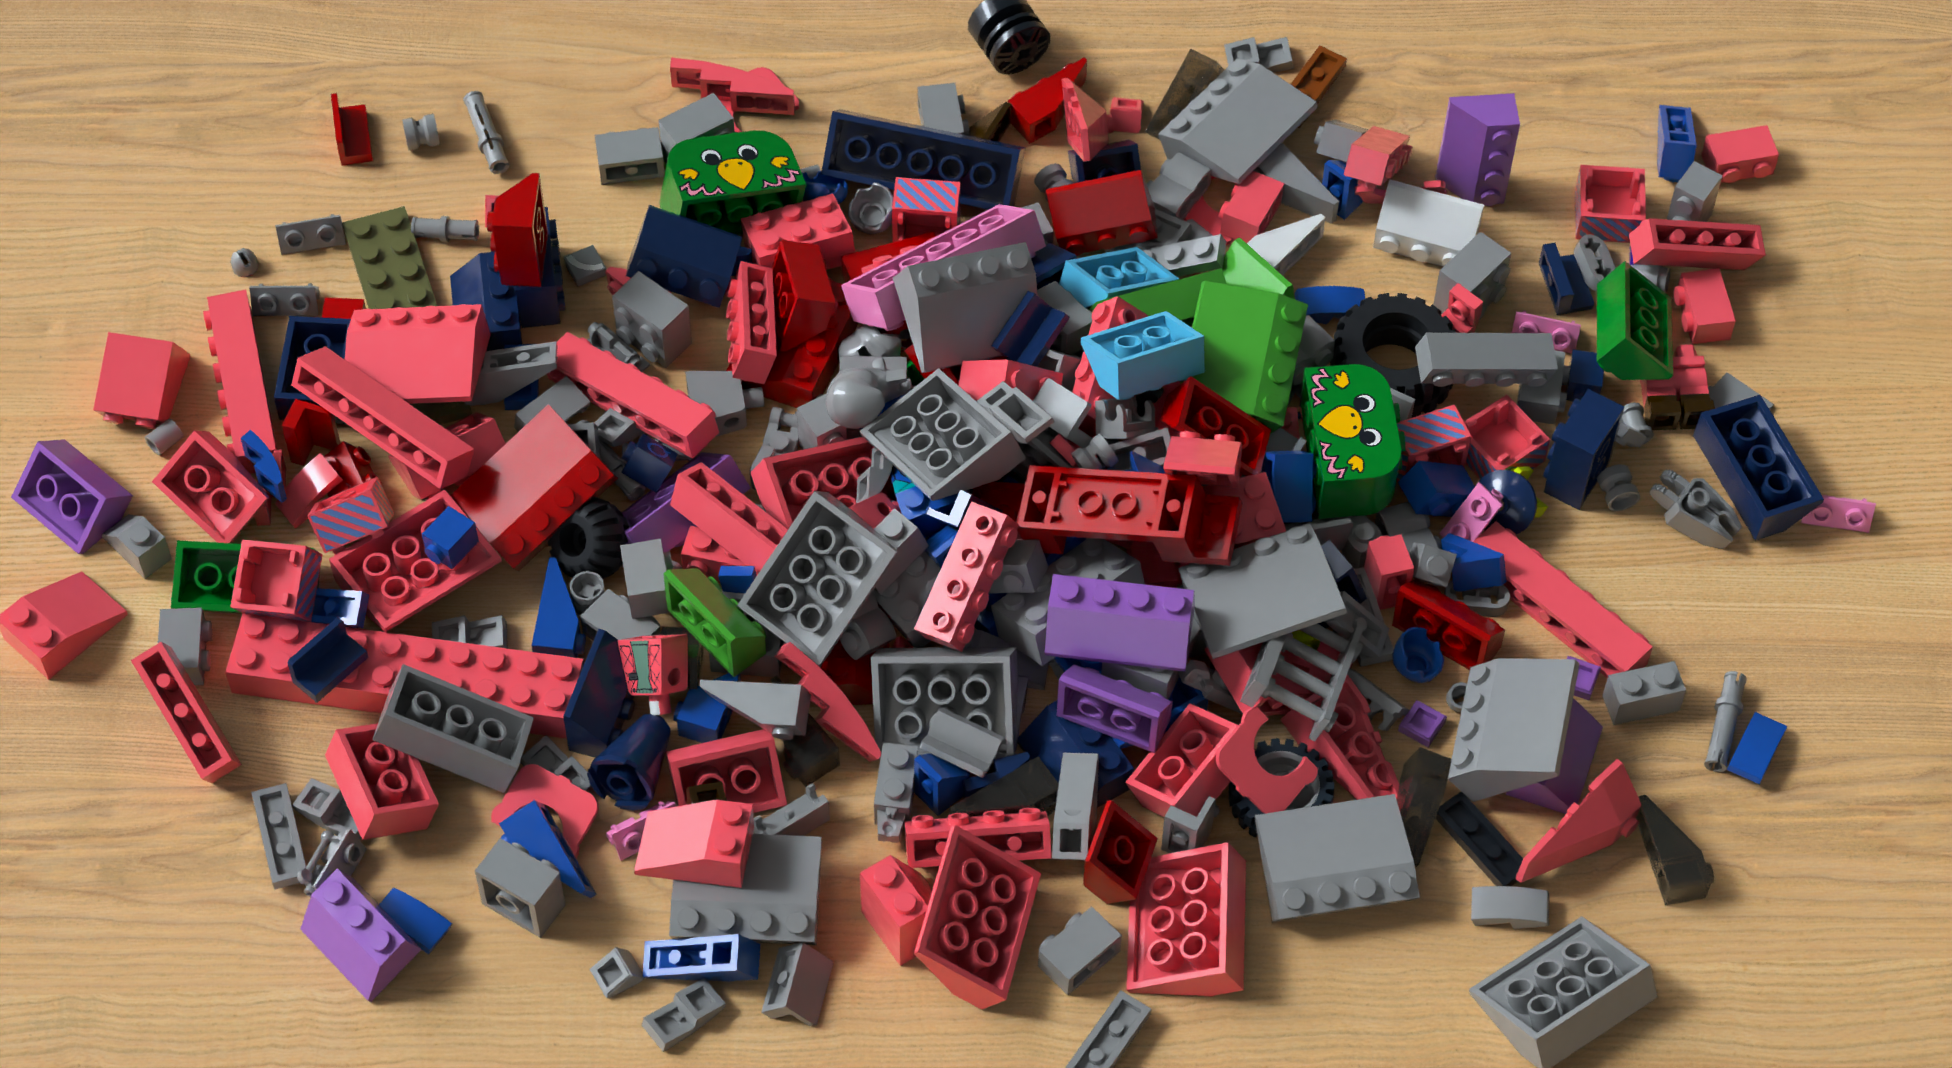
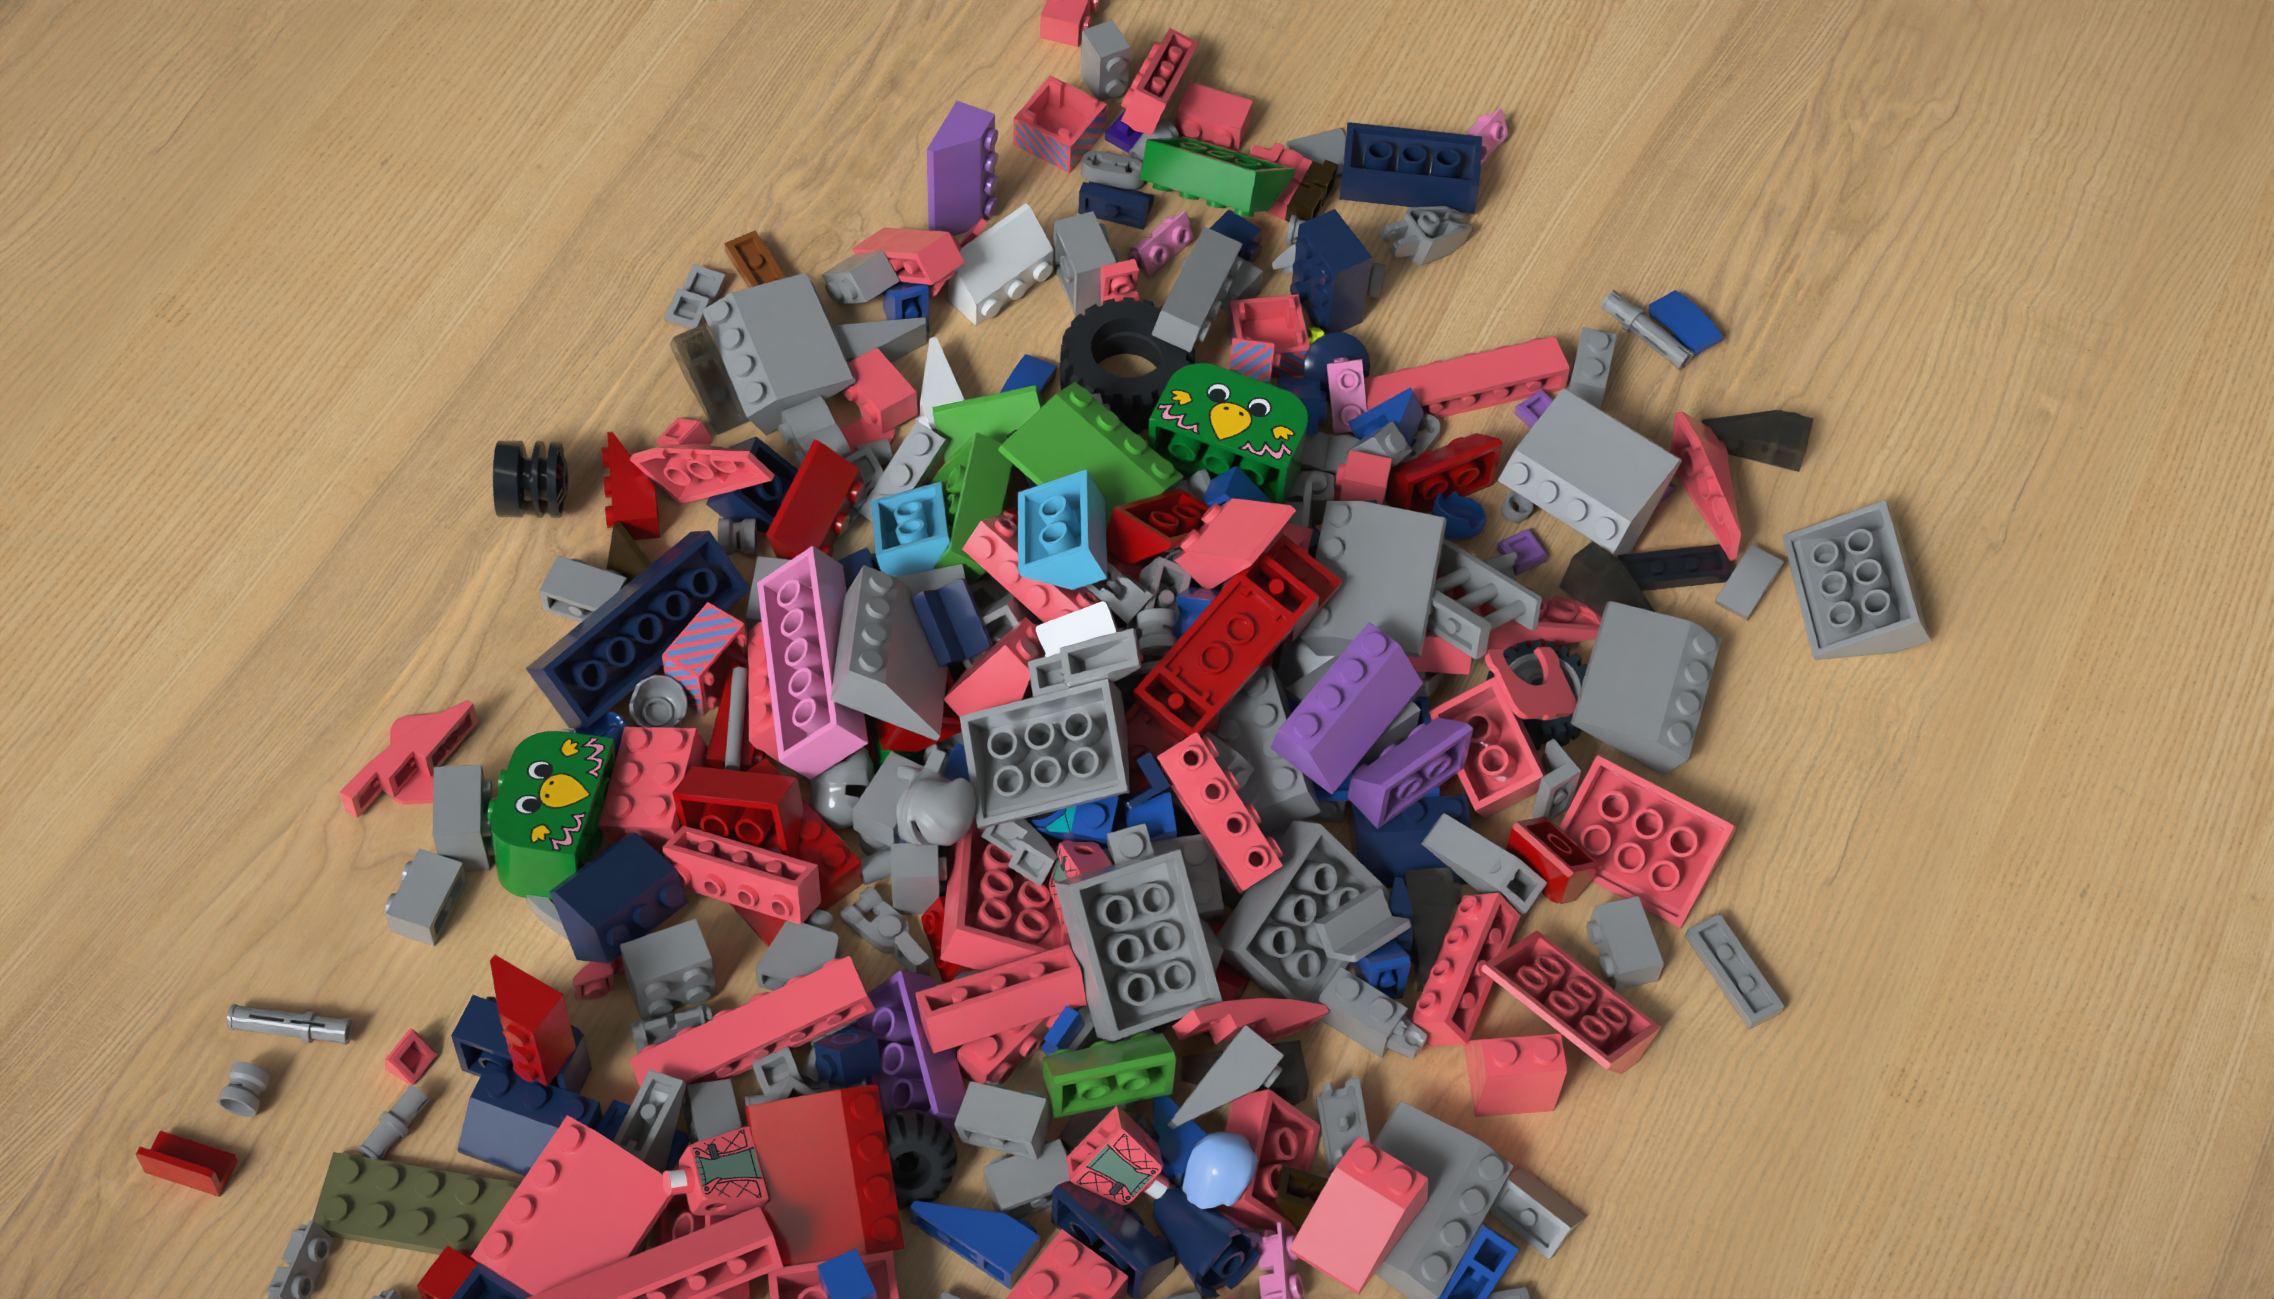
camera: 65 degrees left, 0 degrees up
(490, 417) = (719, 1175): none -> coral torso
(585, 590) = (968, 1184): light grey wheel -> none
(685, 733) = (1219, 1170): none -> light blue hair
(855, 267) = (736, 719): none -> light grey bar
(1675, 142) = (1028, 44): blue slope -> none

